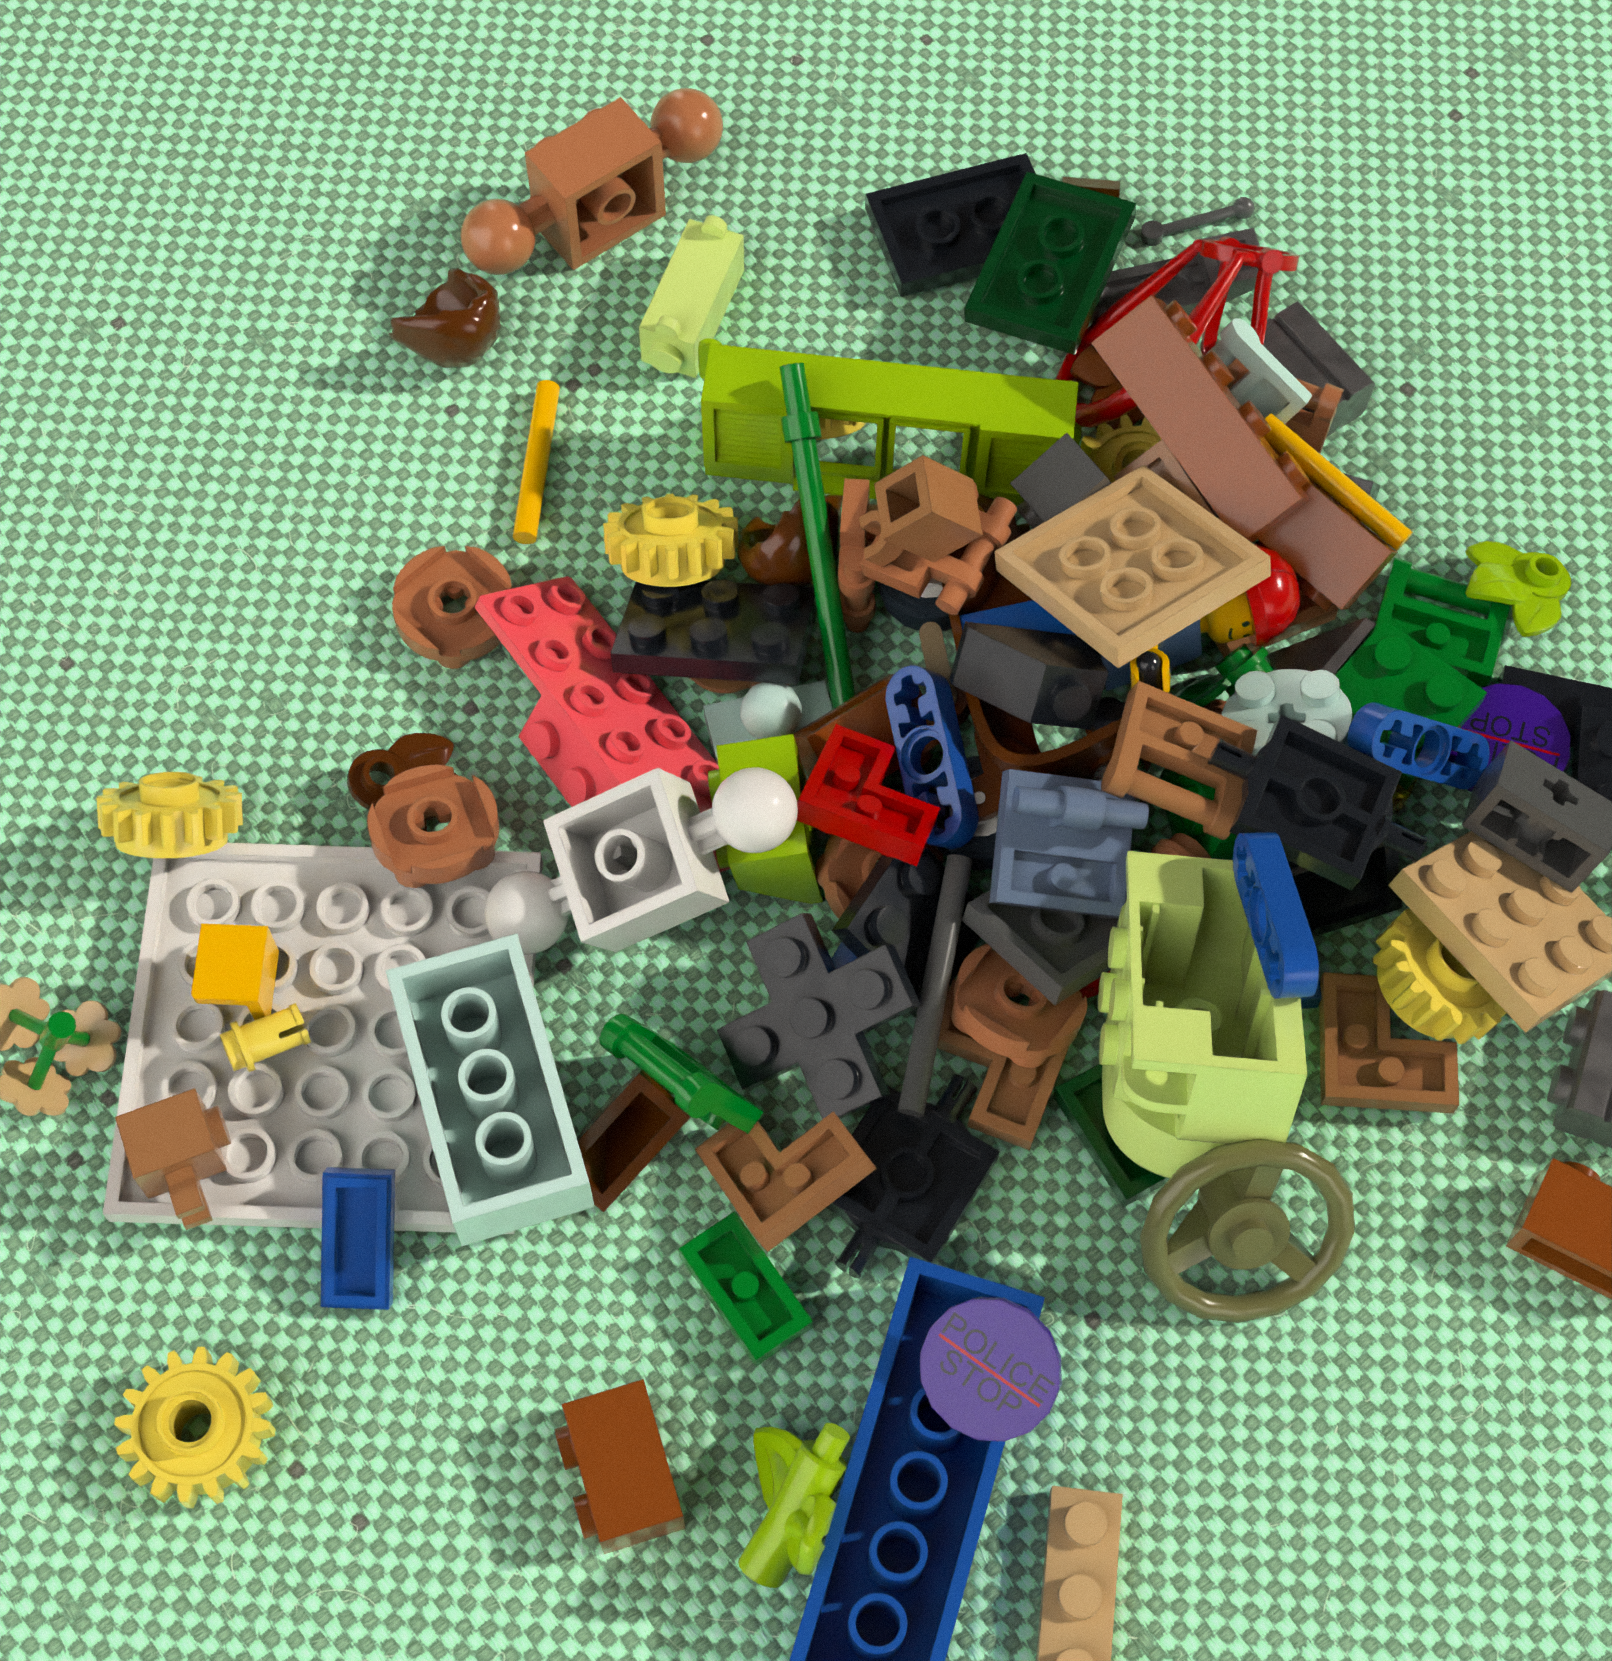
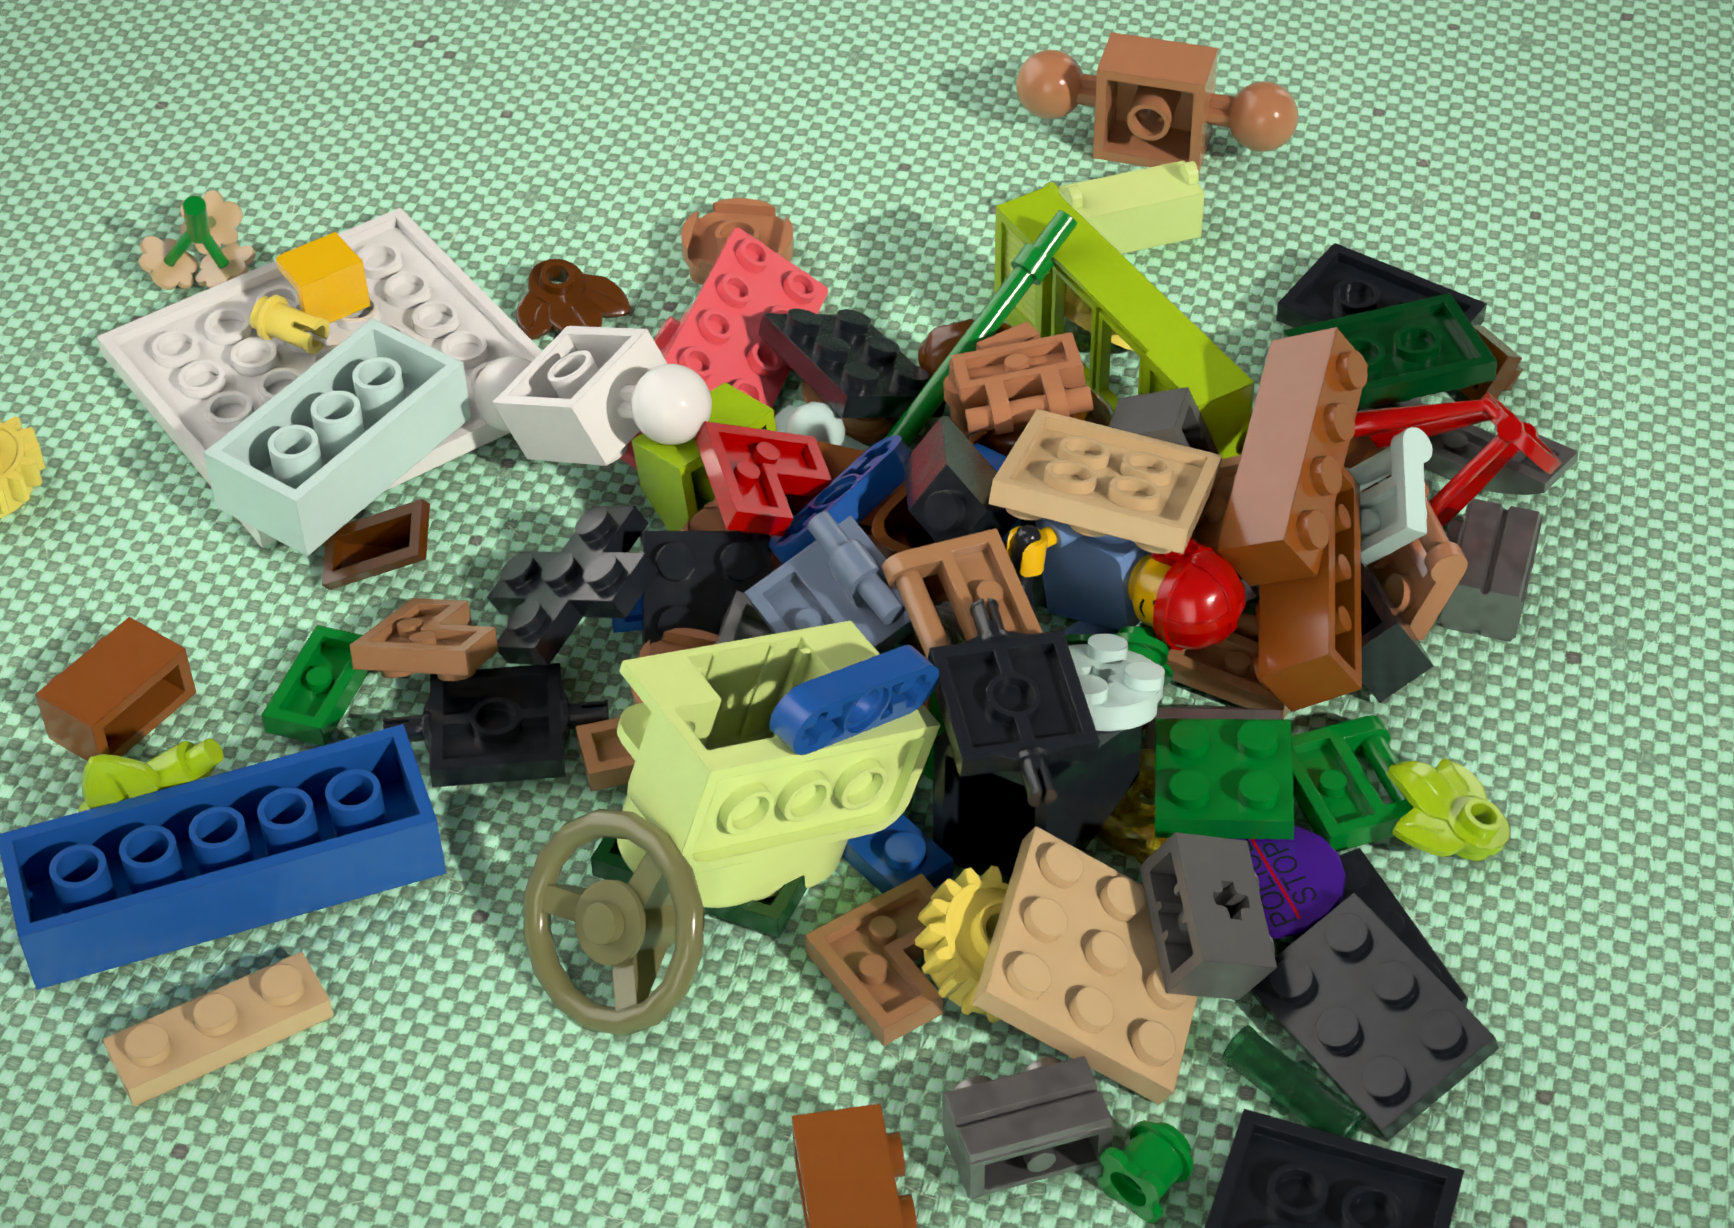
camera: 55 degrees right, 20 degrees down
(170, 815) = (419, 193): light yellow gear -> none
(174, 1148) = (161, 325): medium nougat brick -> none
(357, 1238) = (176, 460): blue tile -> none
(440, 855) = (531, 311): nougat plate -> none
(454, 323) = (956, 117): reddish brown hair -> none
(536, 462) = (904, 222): yellow bar -> none
(671, 540) = (898, 298): light yellow gear -> none
(694, 1086) = (454, 546): green plate -> none
(923, 512) = (1007, 332): medium nougat brick -> none
(935, 986) = (634, 637): dark grey bar -> none
(990, 1369) = (331, 796): dark purple piece -> none
(1153, 231) = (1612, 460): dark grey hinge -> none
(1338, 484) = (1367, 600): yellow bar -> none
(1406, 731) = (1158, 726): blue beam -> none

